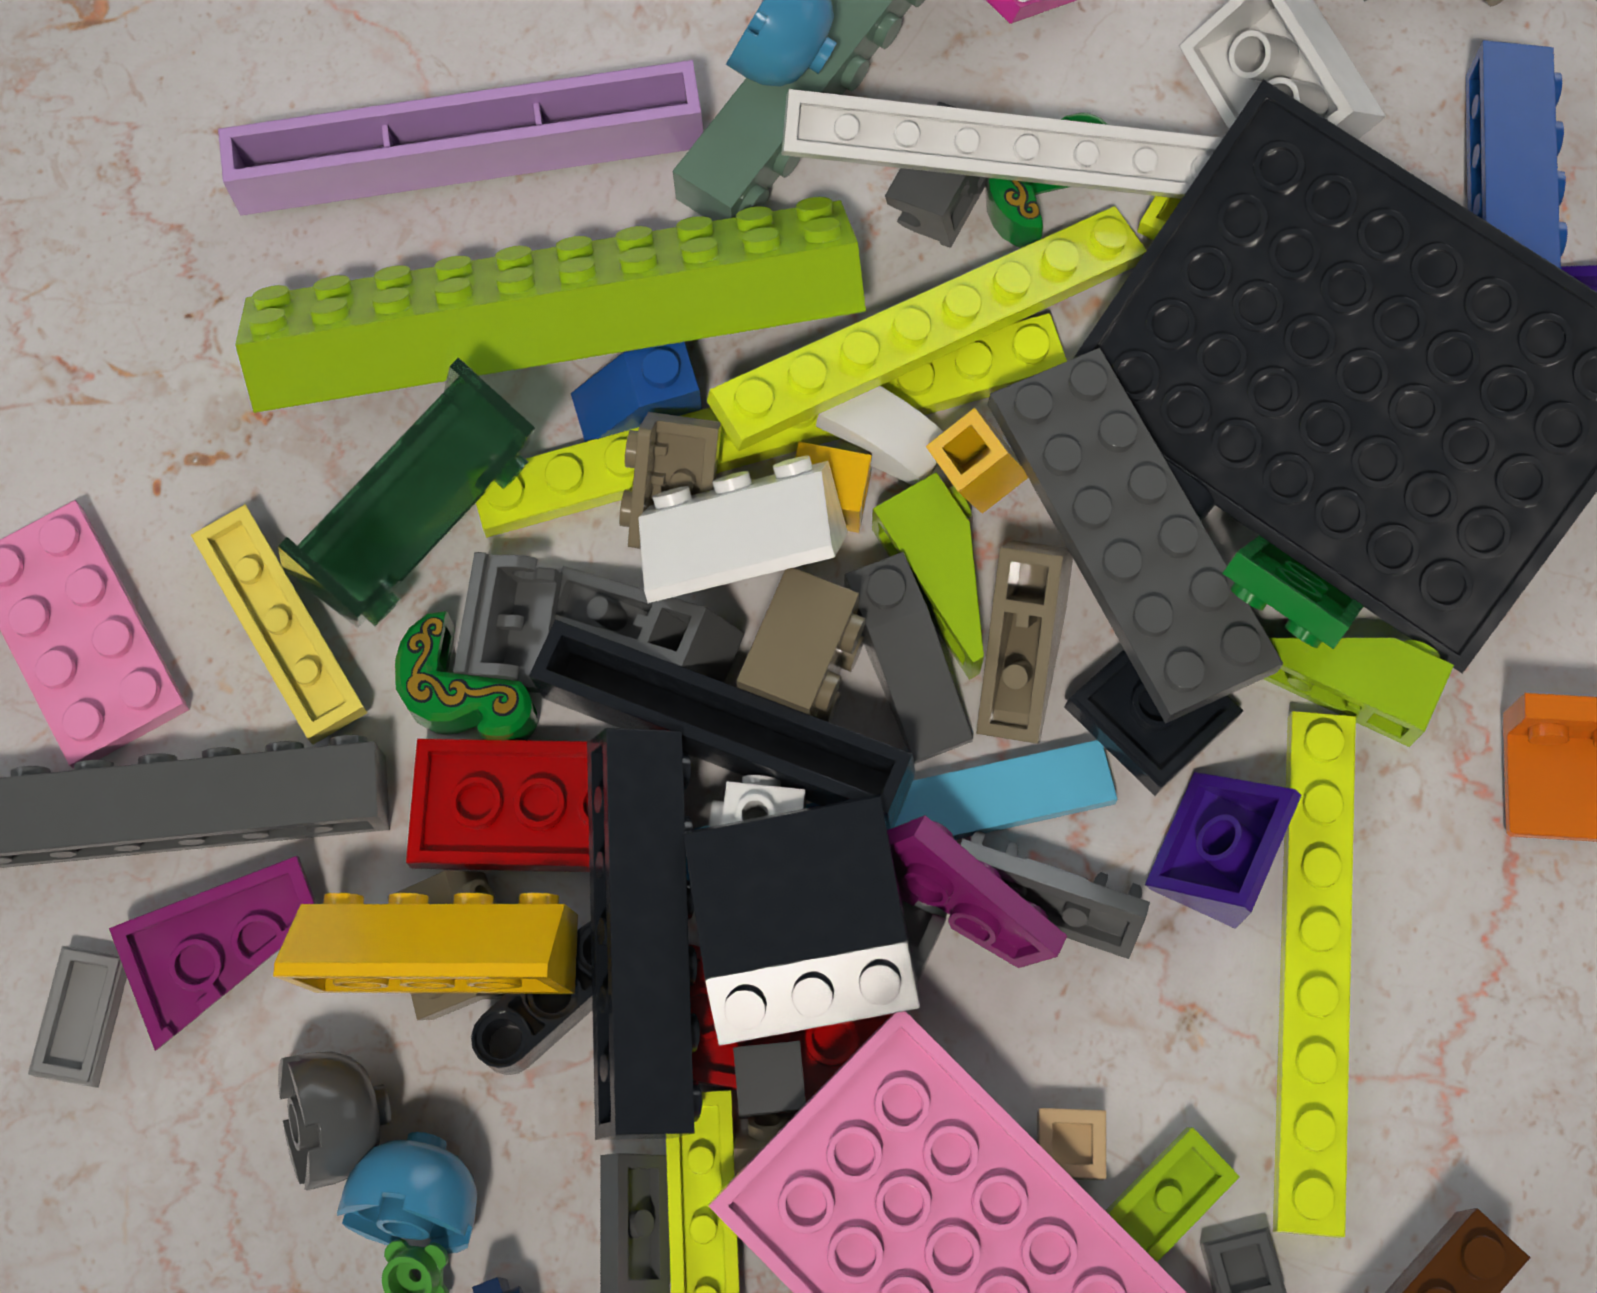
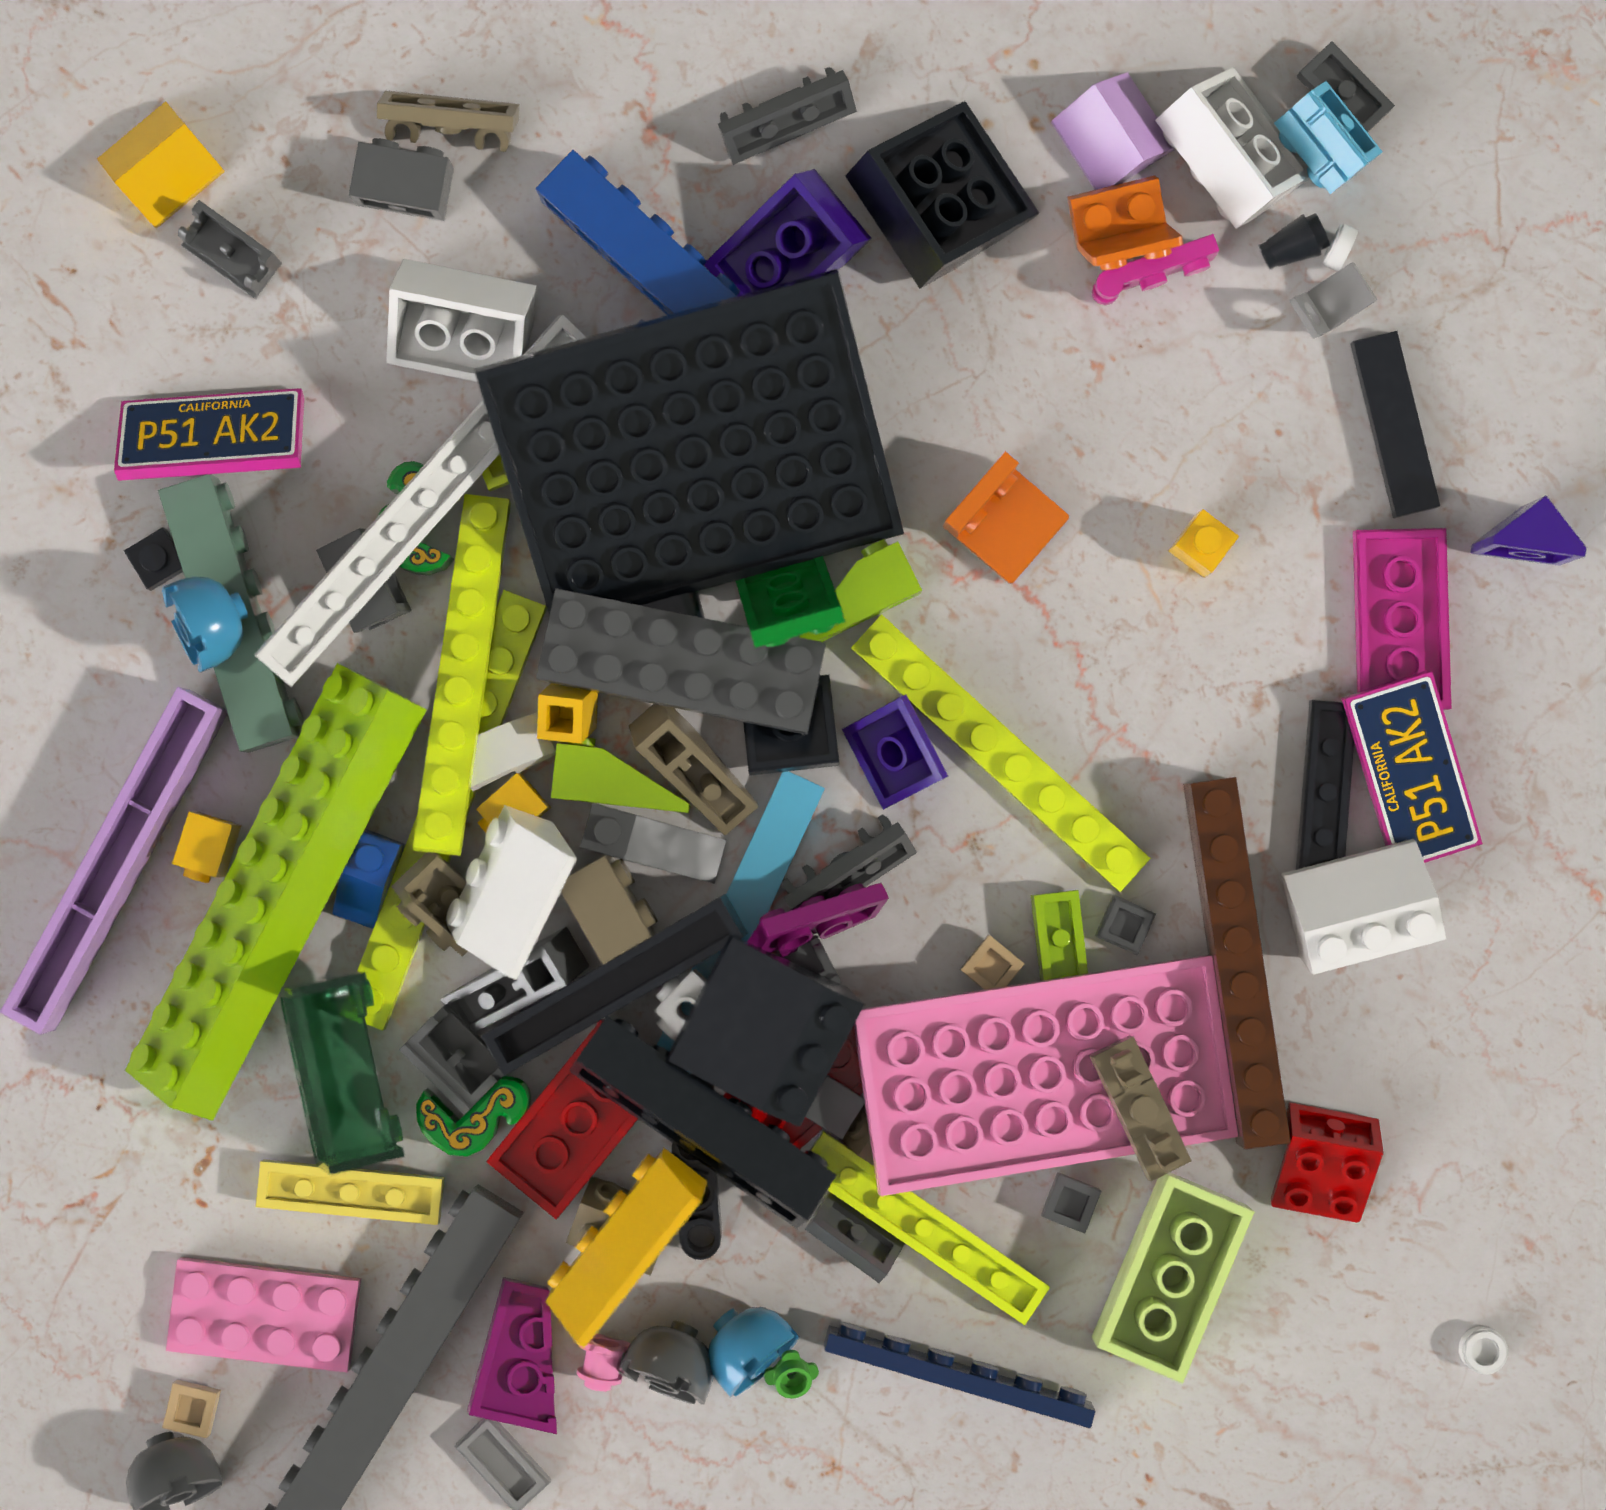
camera: 55 degrees left, 15 degrees up
(274, 1036) = (602, 1362): none -> bright pink brick
(545, 211) = (206, 846): none -> yellow brick

